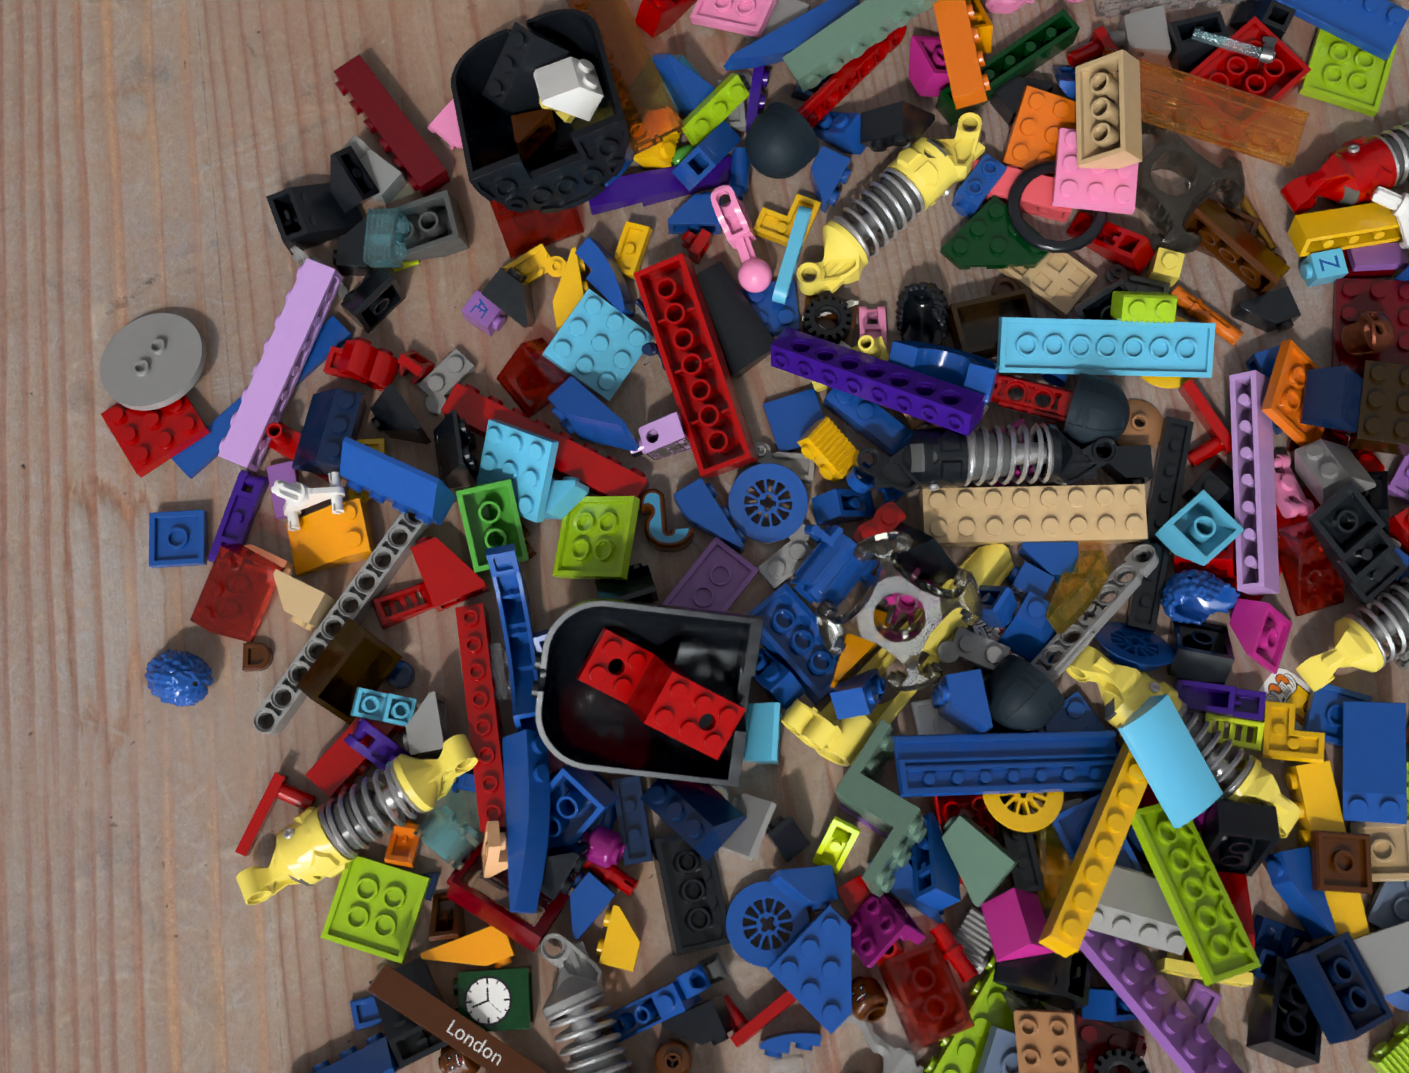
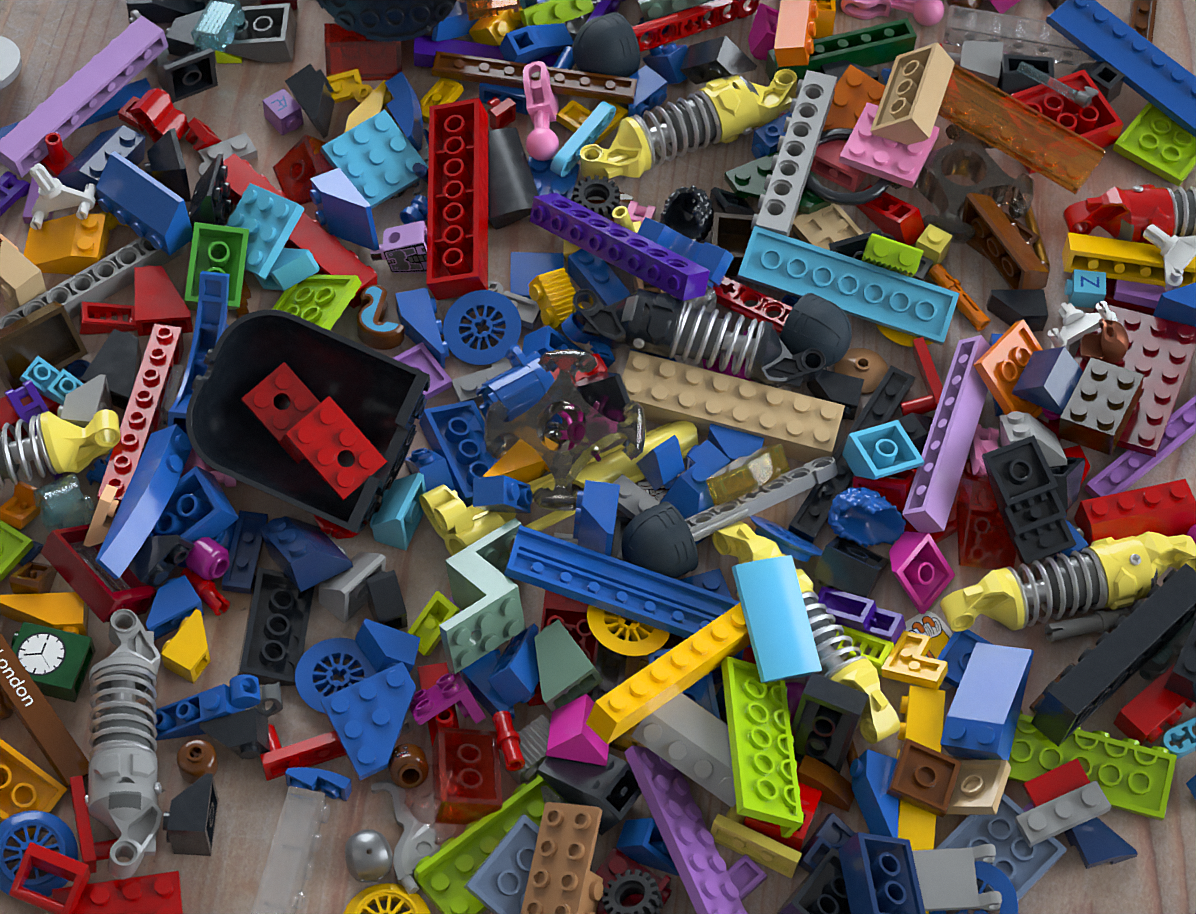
camera: 10 degrees right, 20 degrees down
(435, 663) = (120, 363): none -> black slope
(657, 390) = (416, 212): none -> blue wheel
(697, 200) = (511, 75): none -> reddish brown tile
(957, 284) = (729, 203): none -> black slope
(1012, 129) = (796, 153): none -> light grey brick
(1248, 886) = (835, 788): none -> reddish brown slope
(1332, 316) = (1078, 324): none -> white axle

